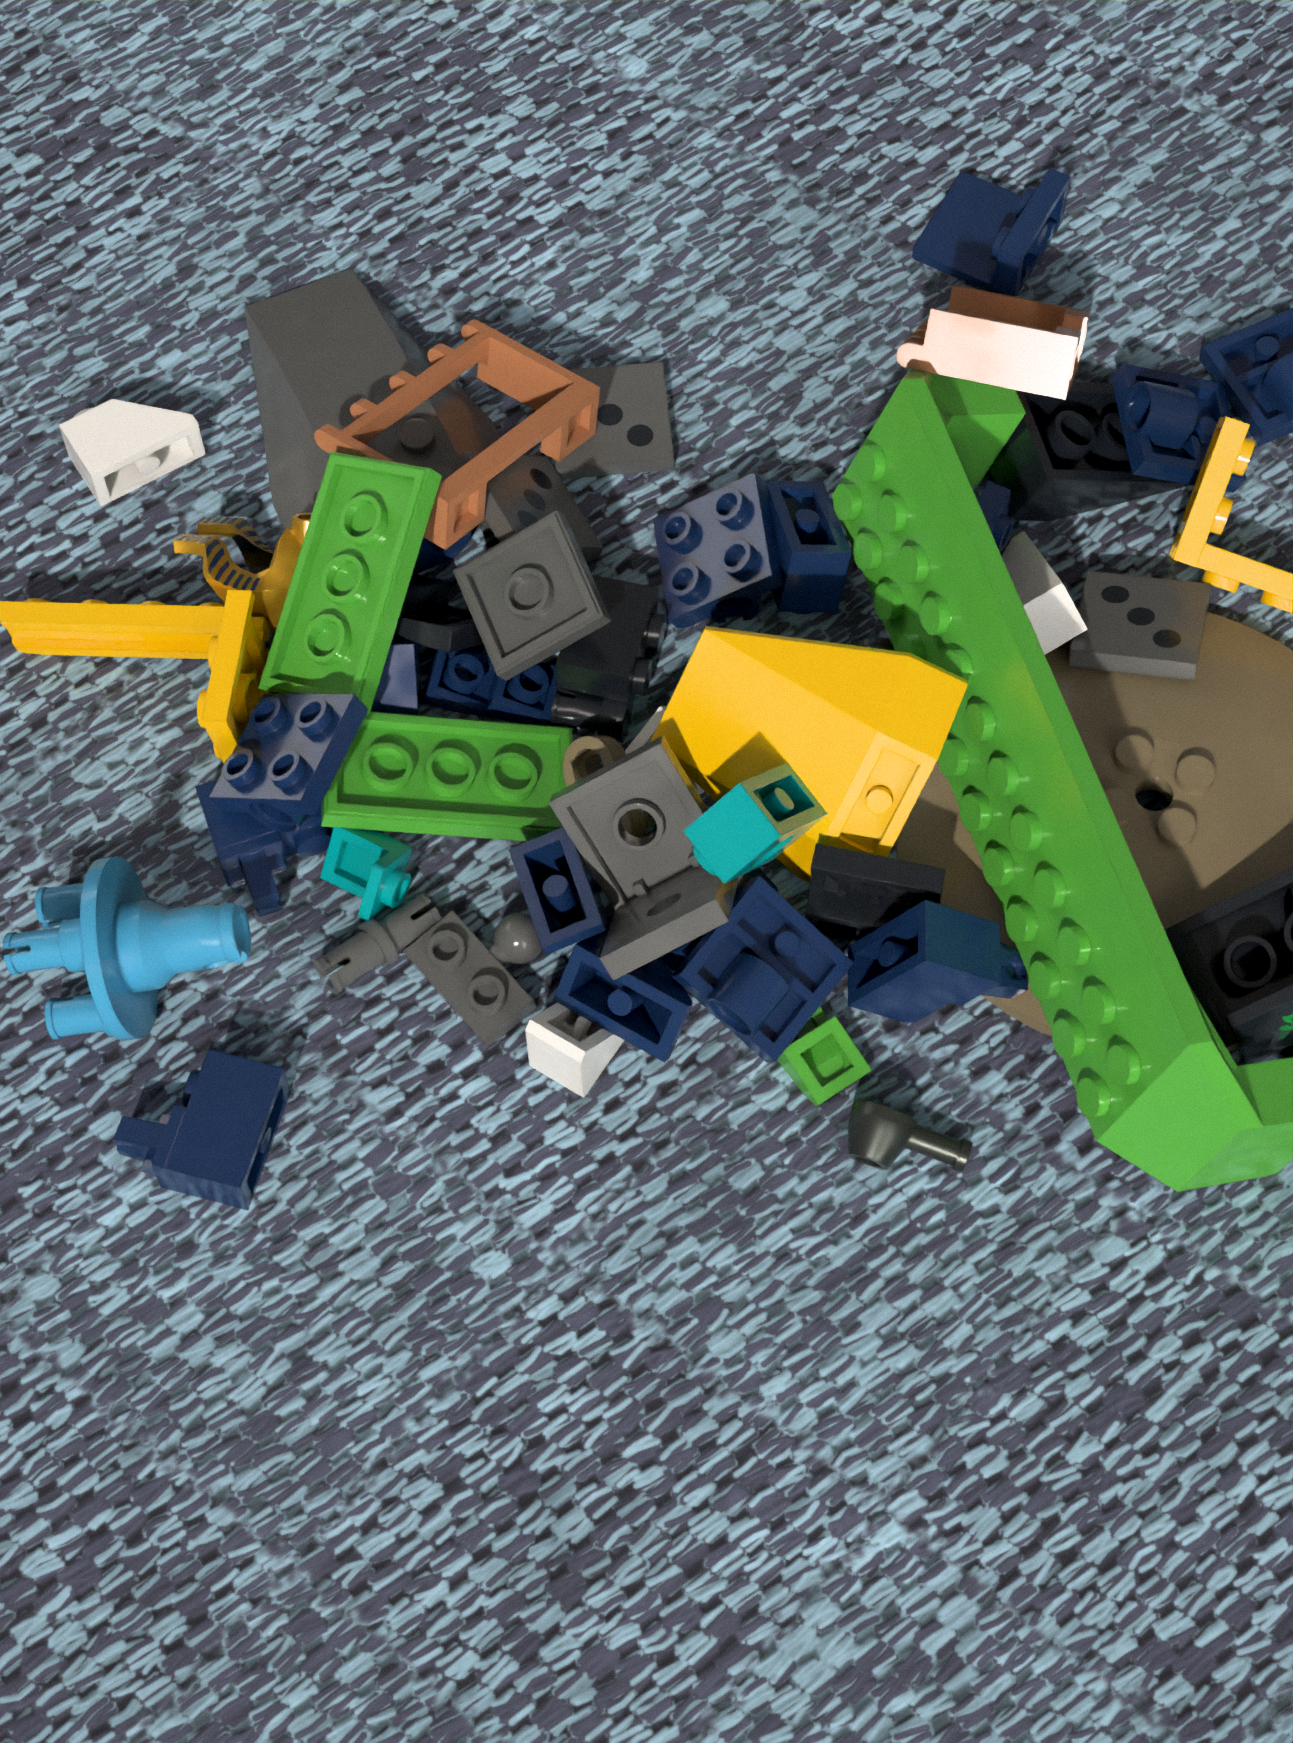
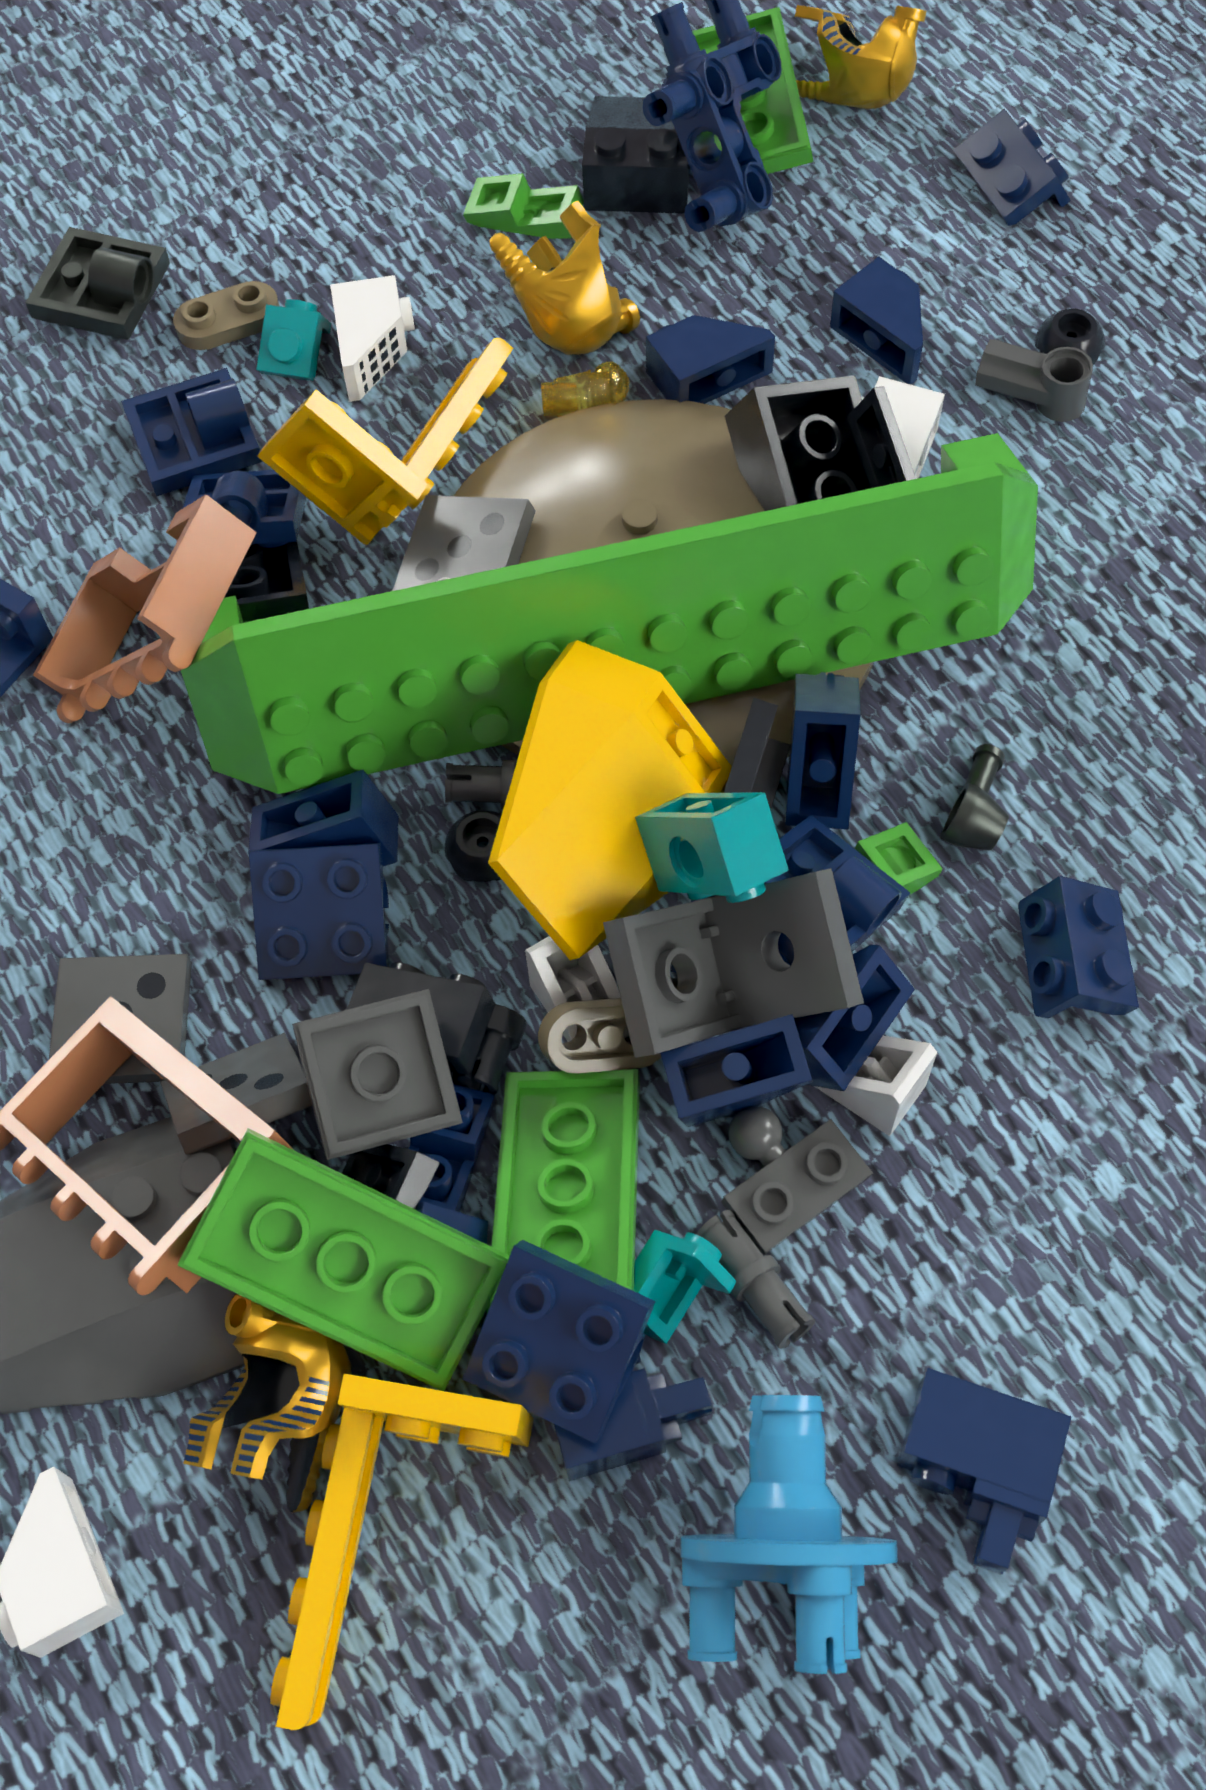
camera: 85 degrees left, 0 degrees up
(734, 1235) = (1077, 949): none -> dark blue bracket

